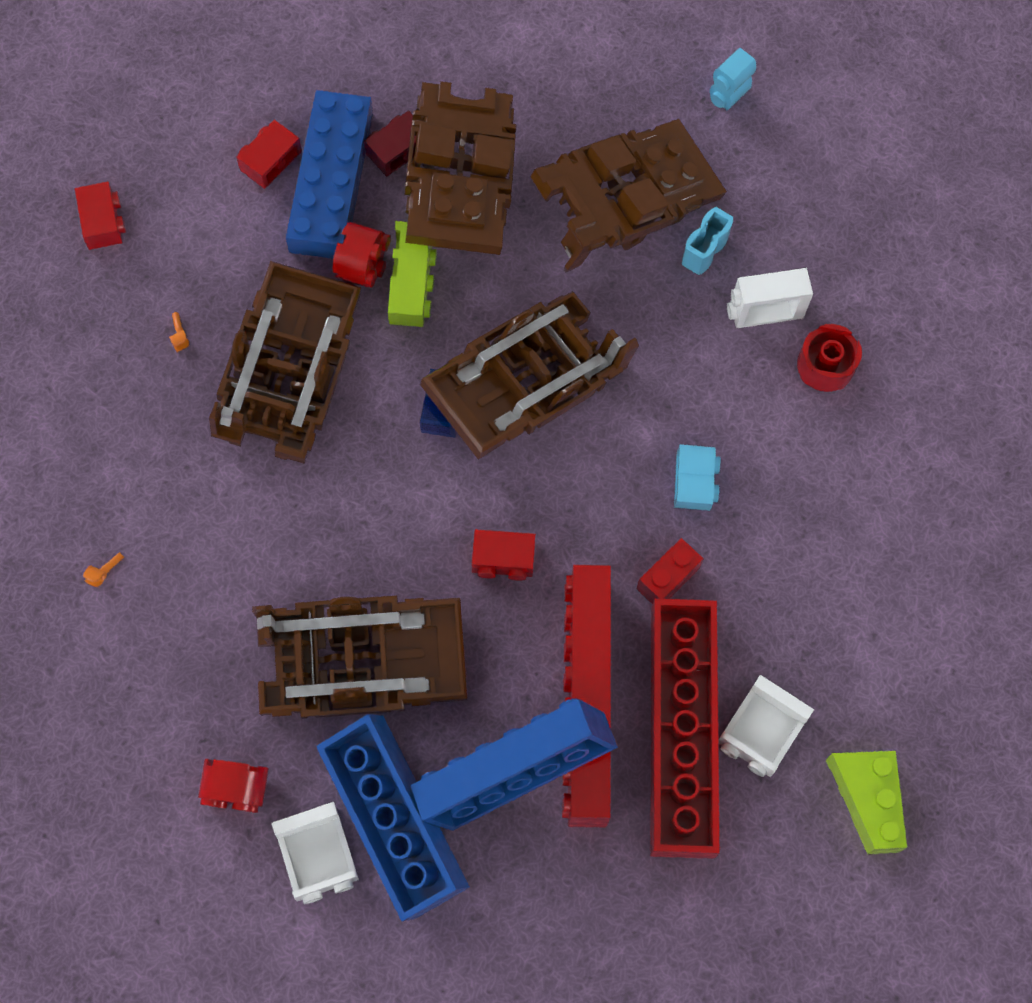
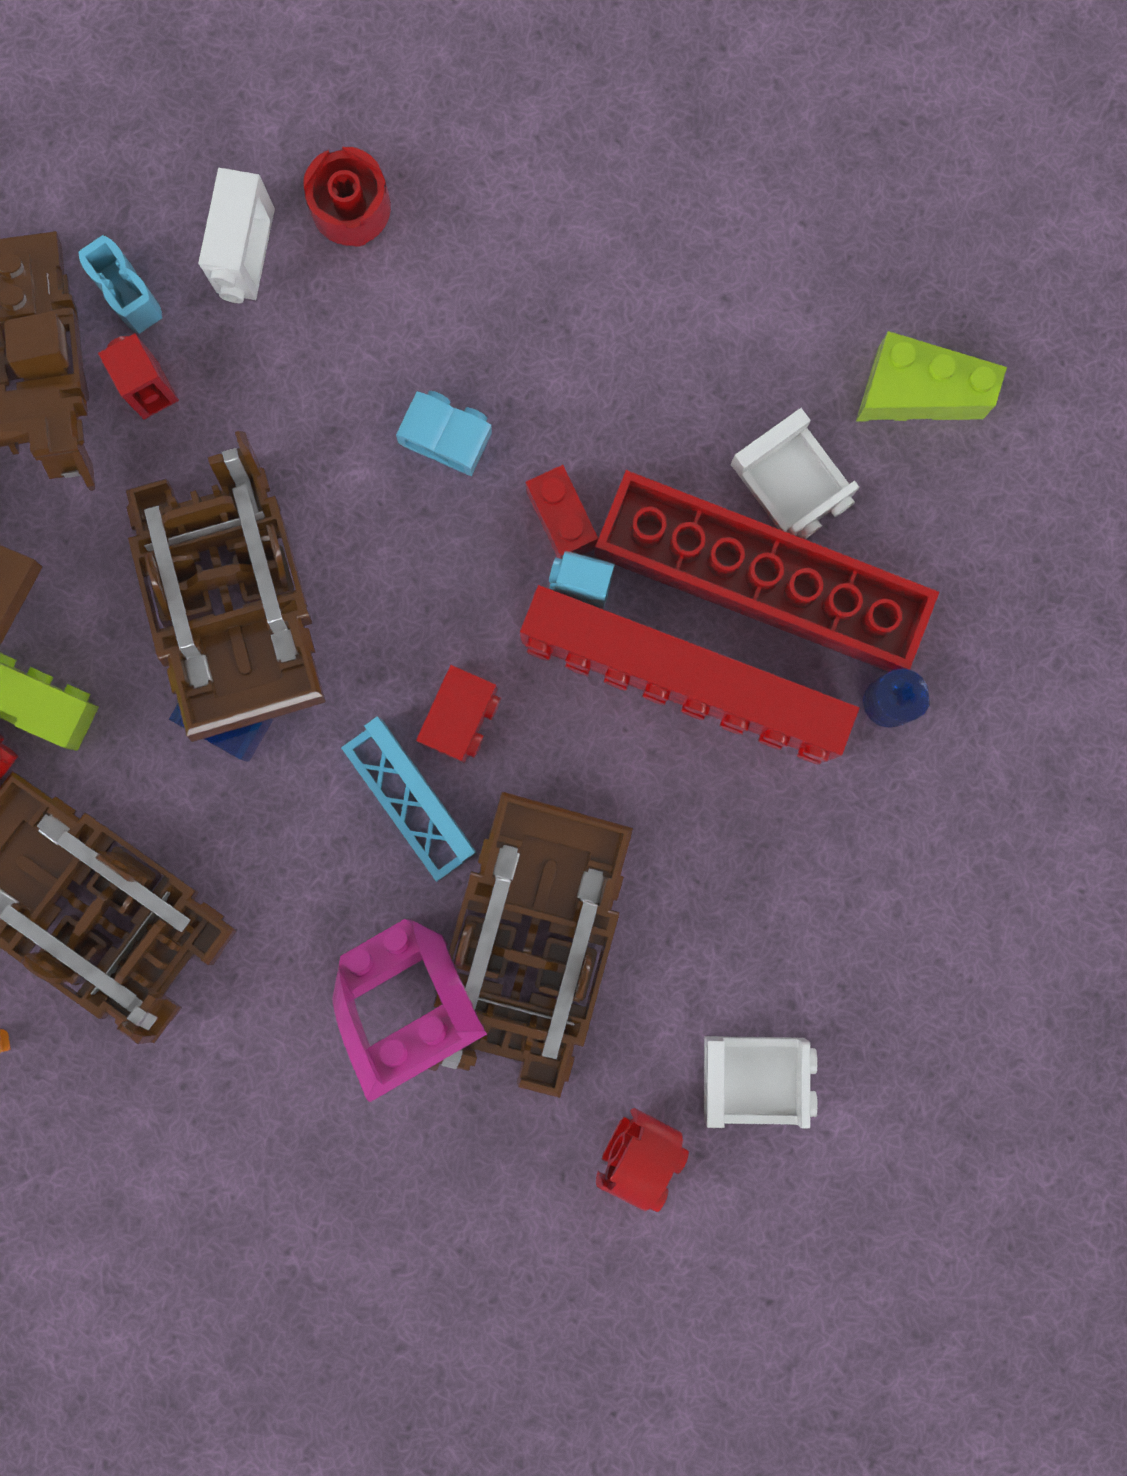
camera: 65 degrees left, 15 degrees up
(96, 576) = (295, 1252): orange hand -> none
(276, 598) = (421, 1041): none -> dark pink wedge
(378, 796) = (753, 974): blue brick -> none
(441, 547) = (420, 789): none -> medium azure fence
(513, 765) = (754, 802): blue brick -> none
(628, 601) = (582, 578): none -> medium azure brick
(640, 845) = (910, 693): none -> clear blue piece
(650, 271) = (138, 375): none -> red brick

